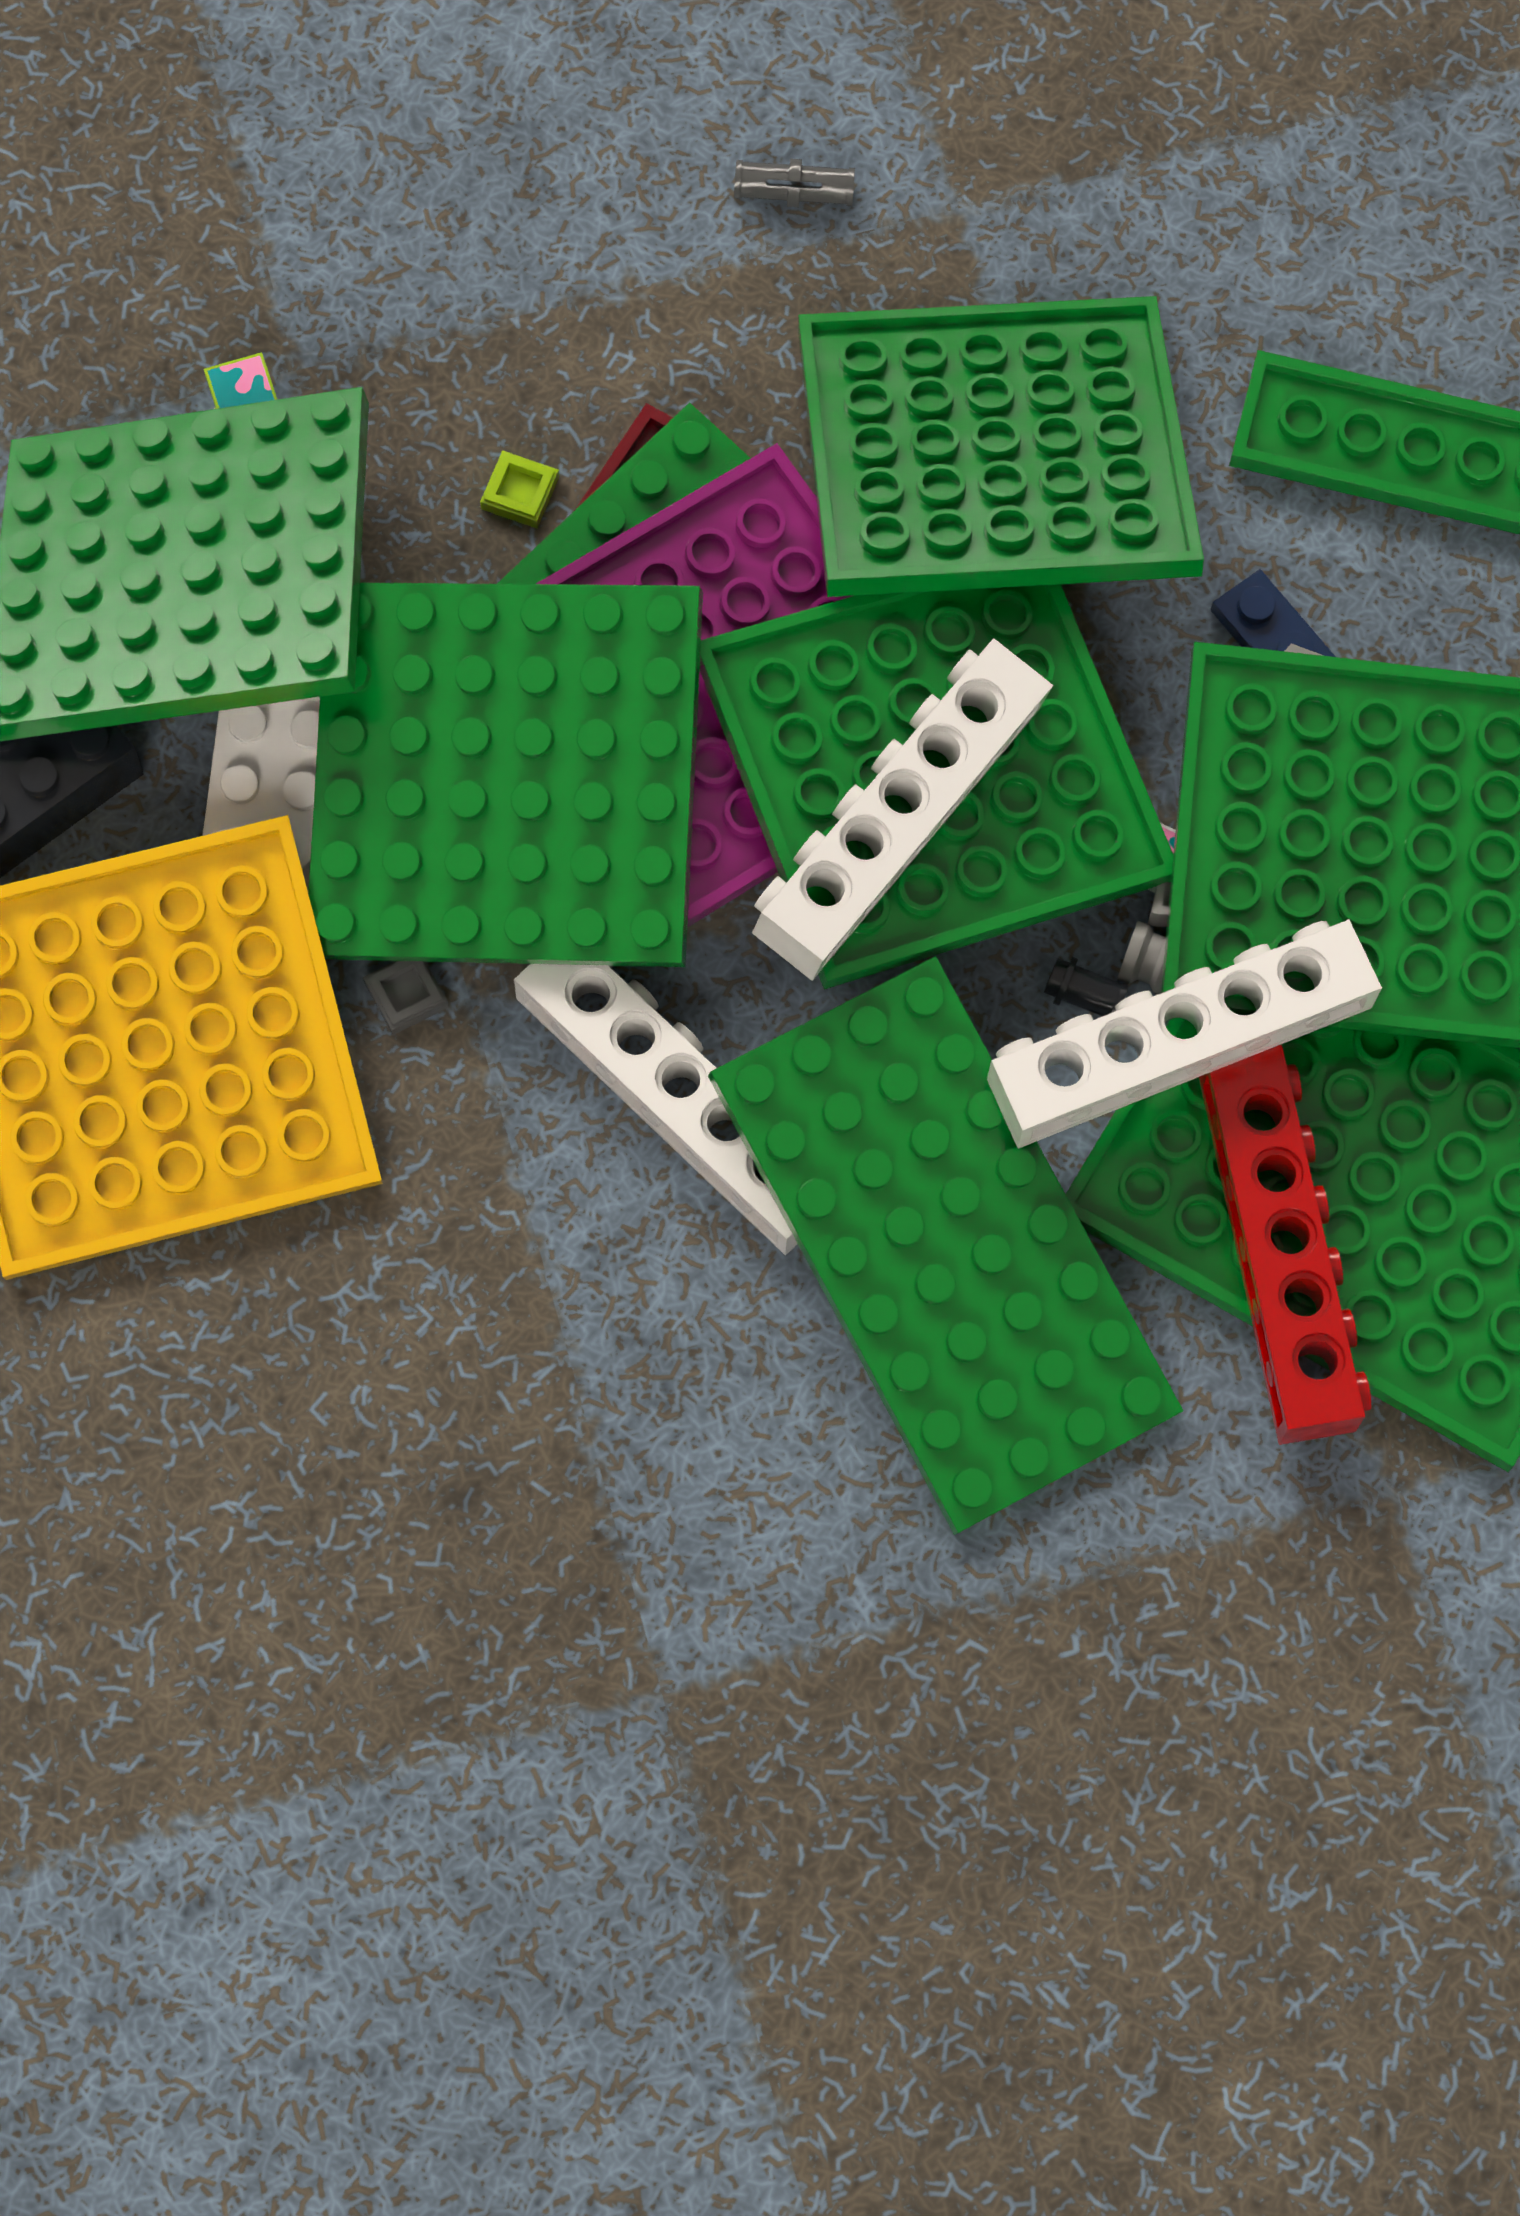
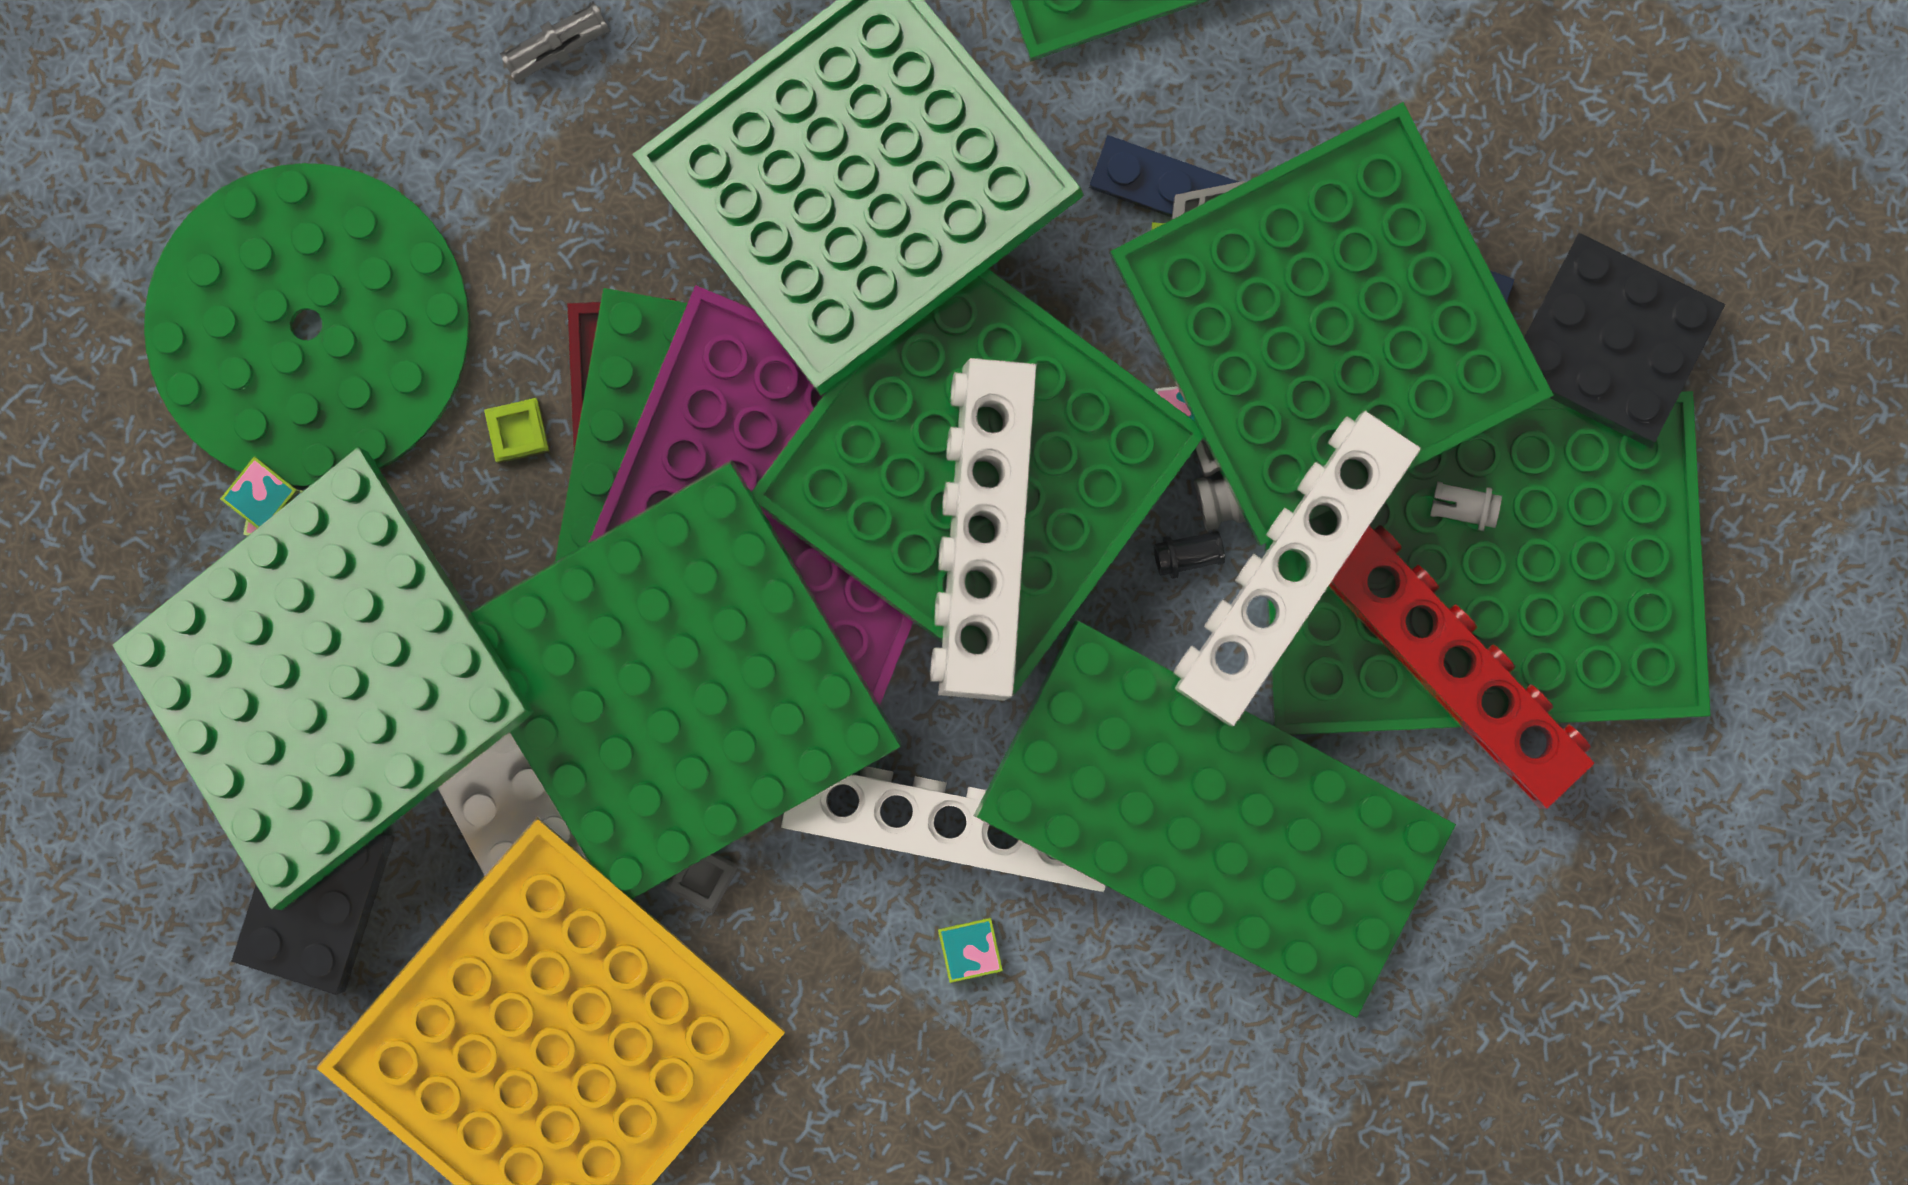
camera: 30 degrees left, 15 degrees up
(380, 200) = (293, 244): none -> green plate
(617, 1224) = (970, 950): none -> tile
(1393, 1105) = (1470, 505): none -> light grey pin

